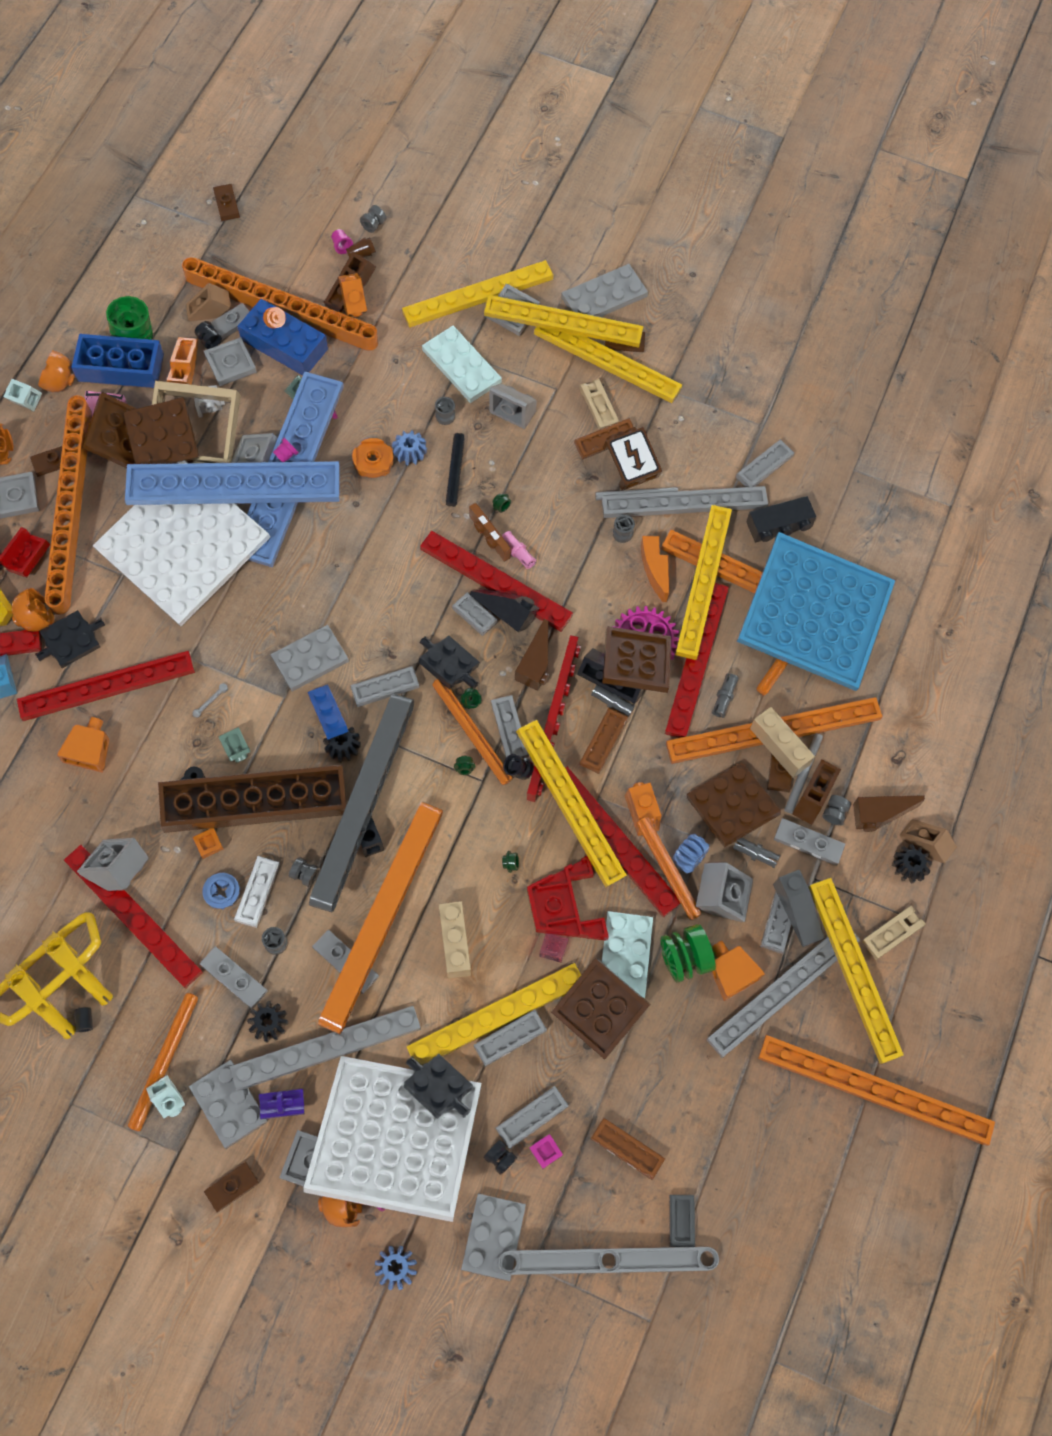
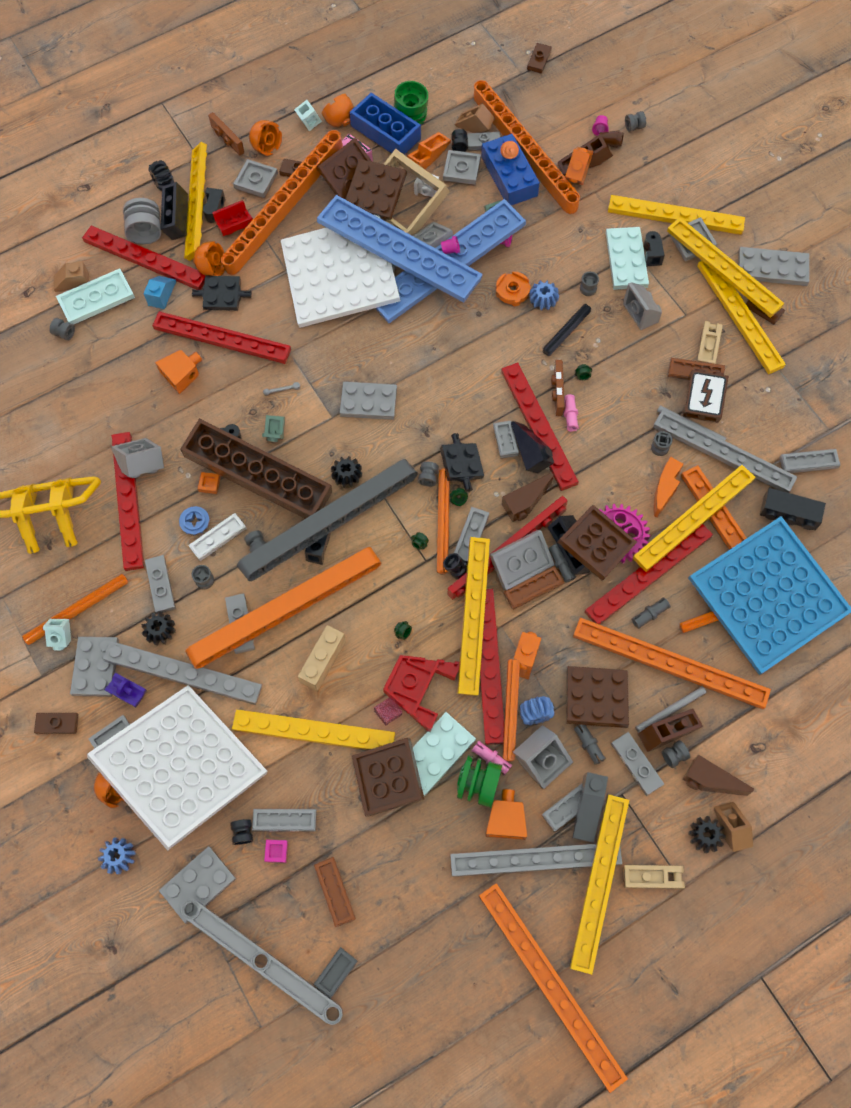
camera: 40 degrees right, 0 degrees up
(83, 1019) = (47, 547): black hinge -> none
(327, 711) = (351, 443): blue plate -> none
(384, 686) = (404, 450): light grey plate -> none
(426, 696) = (428, 474): none -> dark grey wheel
(438, 1086) = (234, 751): black plate -> none
(482, 339) = (654, 249): none -> black leg
(510, 1038) = (310, 753): light grey plate -> none
(576, 721) = (521, 559): none -> light grey plate
(676, 924) = (488, 755): none -> bright pink pin
(778, 778) = (654, 695): reddish brown plate -> none
(782, 742) = (667, 674): tan brick -> none

